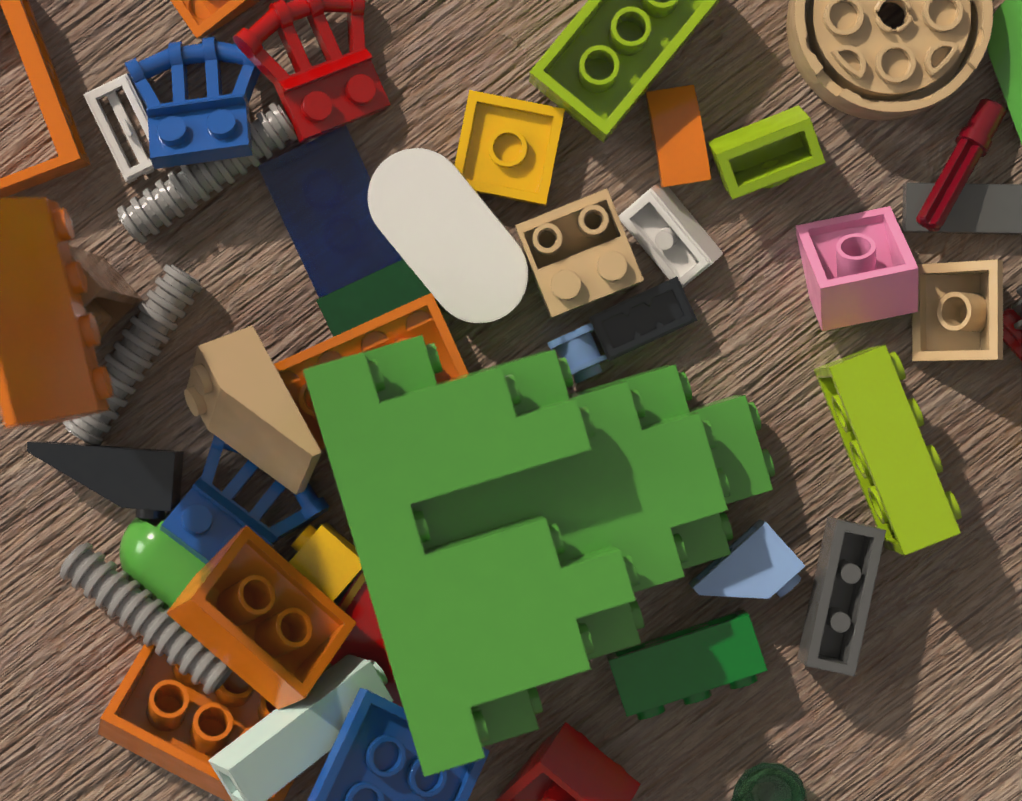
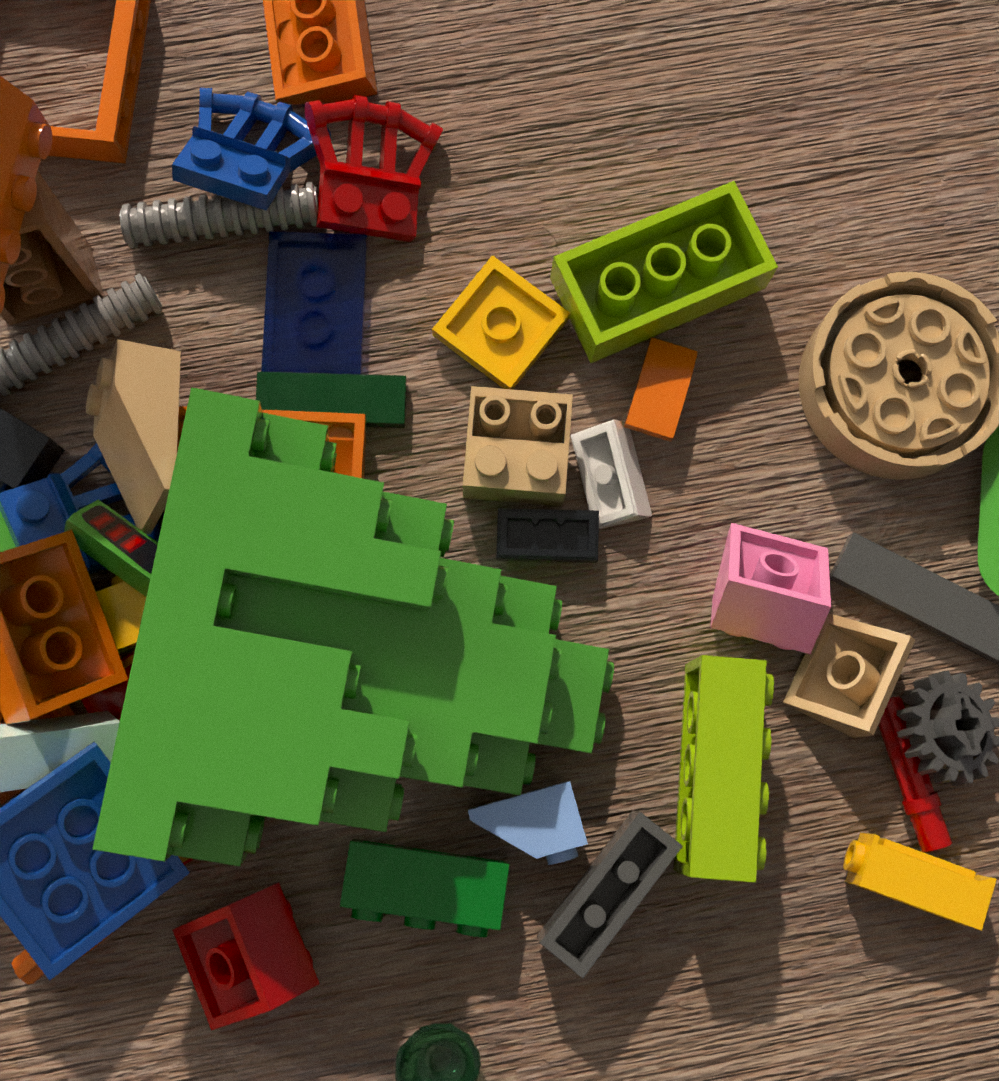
camera: 20 degrees right, 10 degrees down
(109, 89) = (157, 107): white tile -> none
(291, 515) = (114, 543): none -> slope
(448, 235) = (406, 370): white tile -> none
(580, 352) = (472, 535): medium blue brick -> none
(766, 152) = (736, 439): lime brick -> none
(972, 143) = (929, 527): dark red axle -> none

